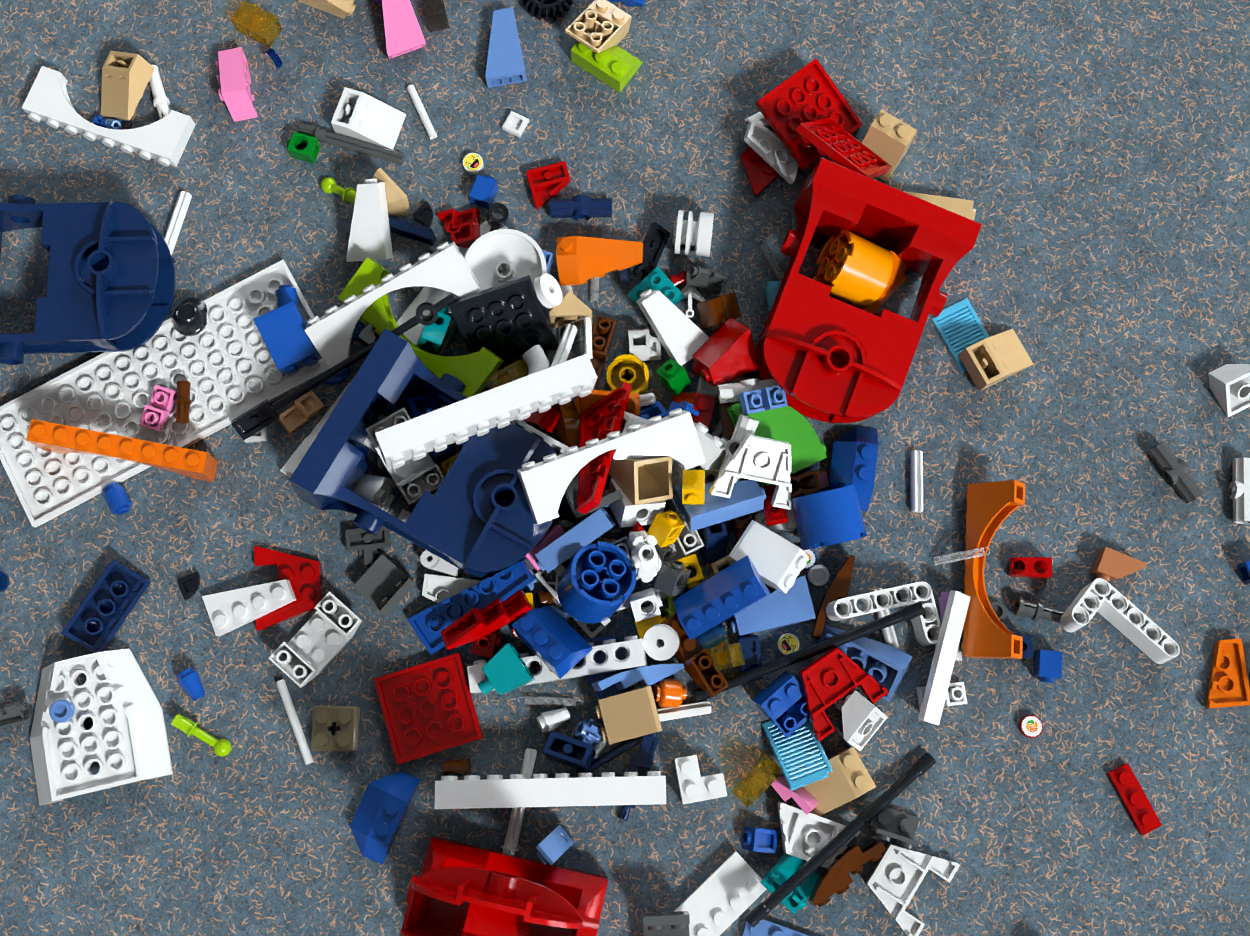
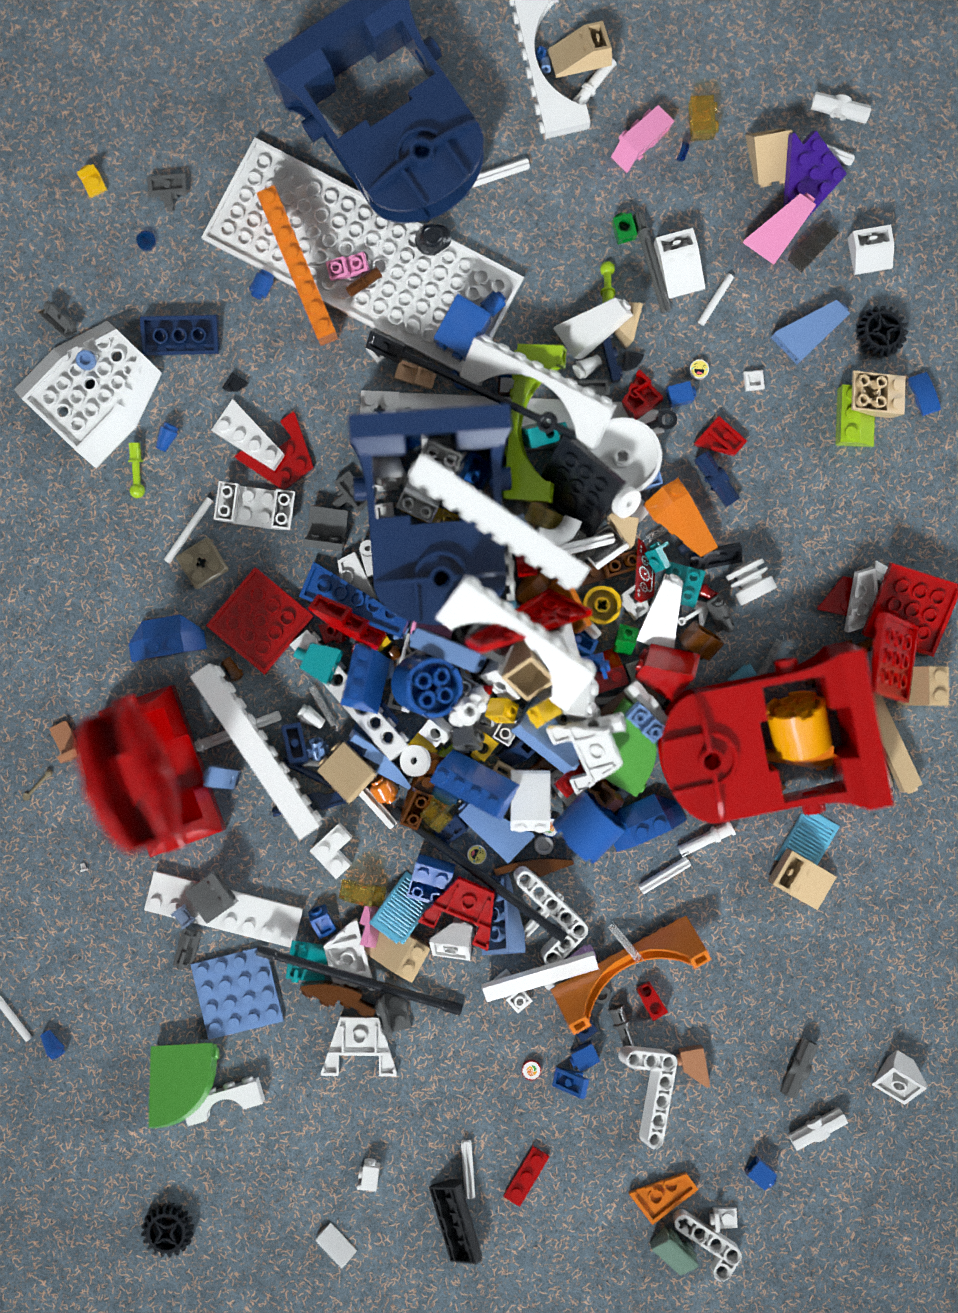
camera: 55 degrees right, 10 degrees up
(401, 255) = (586, 366): none -> white cone
(616, 301) = (657, 557): none -> teal bracket
(625, 322) = (644, 575): none -> red sticker
(906, 411) = (714, 835): none -> white pin
(1066, 694) = (571, 1082): none -> blue slope
(1094, 853) = (468, 1173): none -> white axle
(1142, 900) = (455, 1222): none -> black piece

